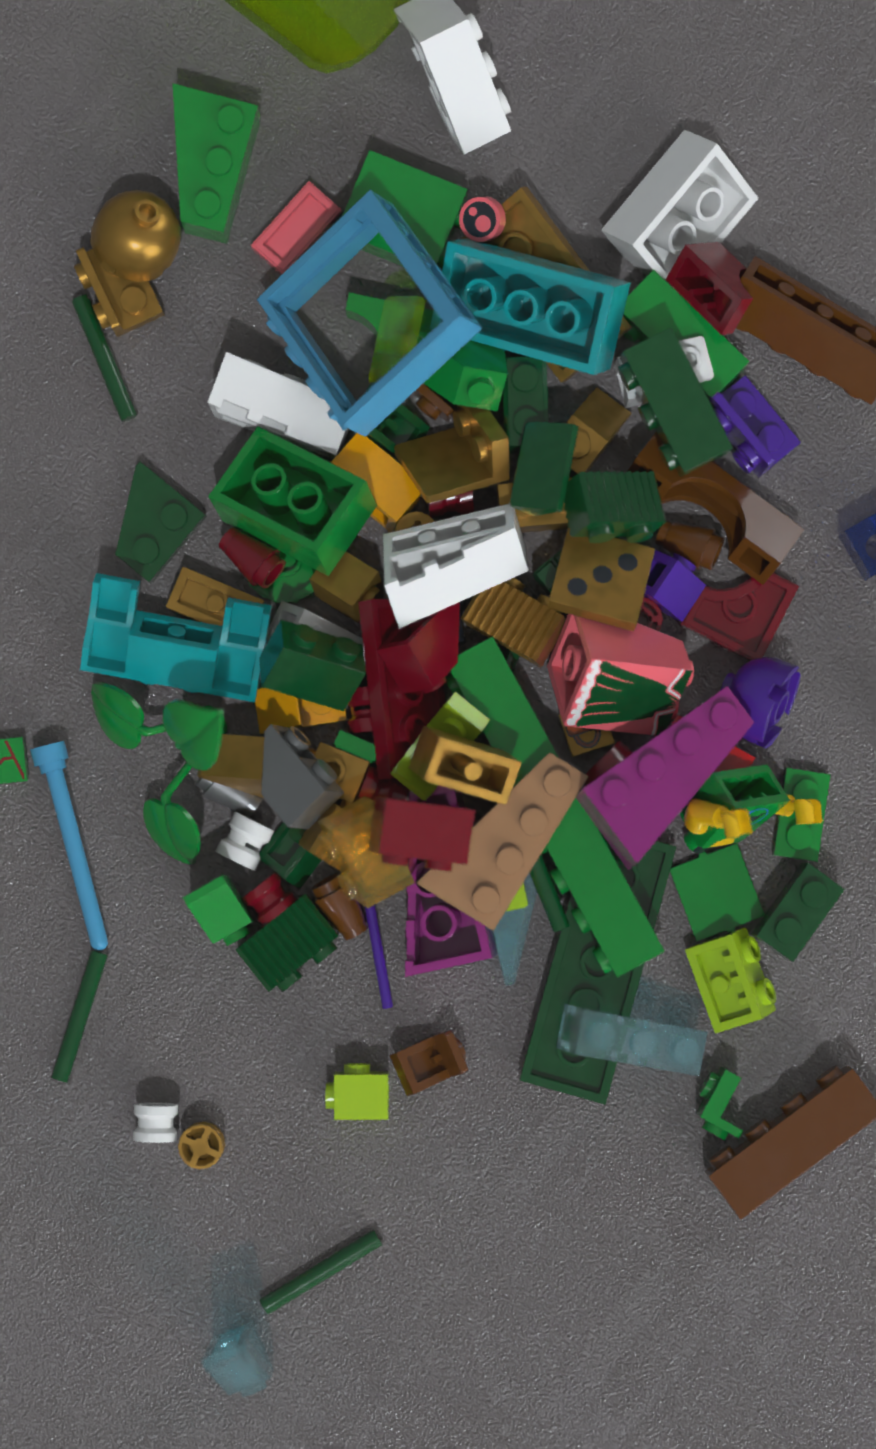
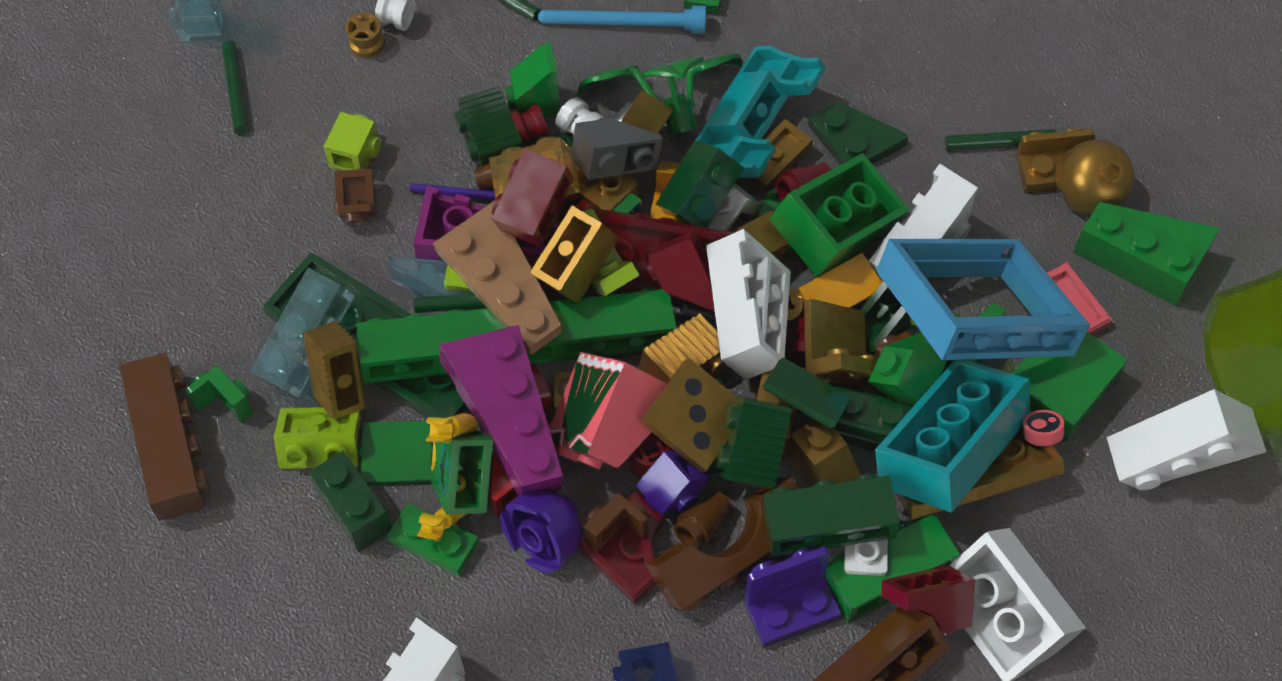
camera: 110 degrees right, 25 degrees down
(668, 984) = (334, 369): none -> pearl gold brick
(737, 638) = (606, 521): none -> reddish brown bracket

